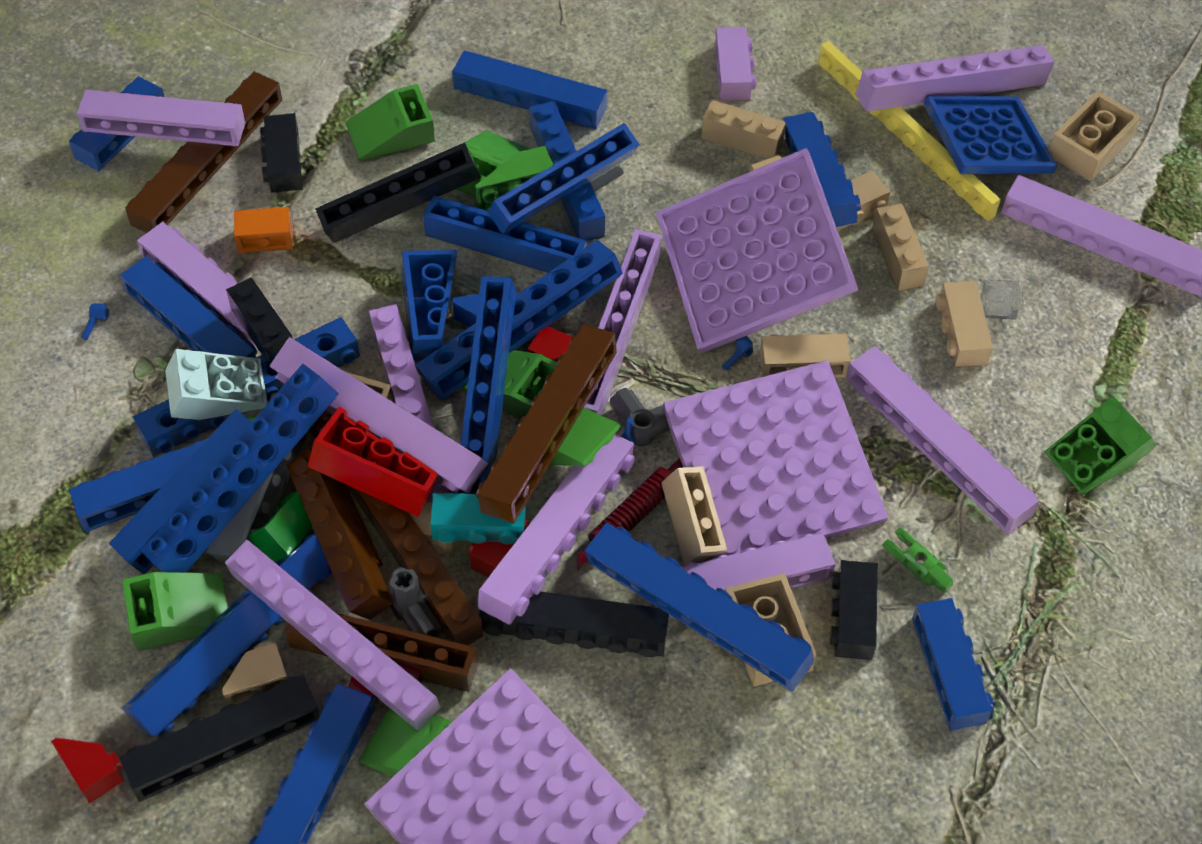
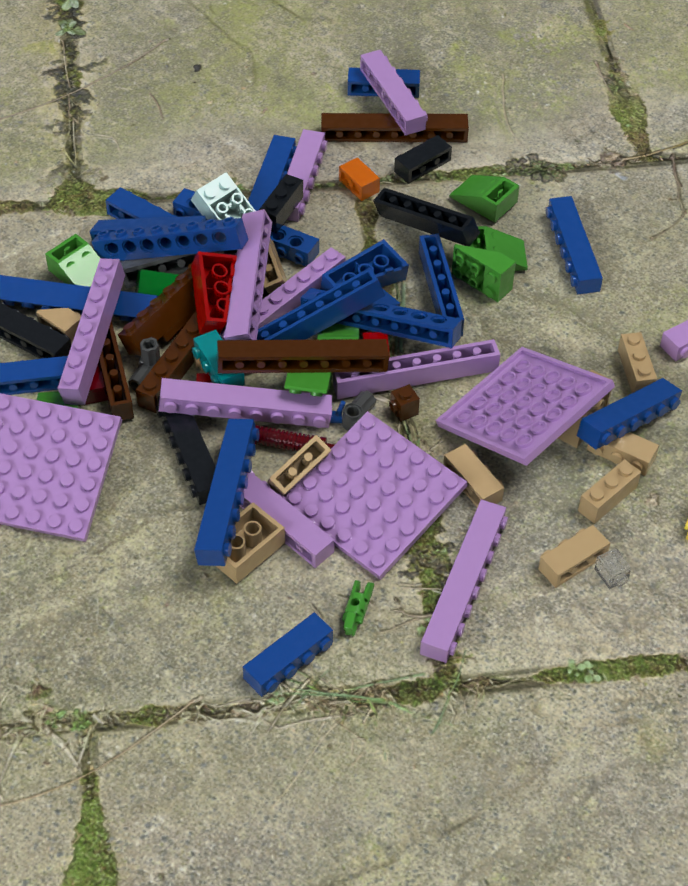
camera: 60 degrees right, 5 degrees down
(96, 312) = (247, 142): blue hand -> none
(563, 178) = (494, 280): blue brick -> none
(582, 204) = (521, 291): blue brick -> none
(606, 178) = (530, 314): dark grey piece -> none
(656, 364) = (404, 403): none -> reddish brown brick
(744, 349) = (459, 441): blue hand -> none
(854, 610) = (294, 585): black brick -> none
(1100, 446) = (531, 678): bright green slope -> none

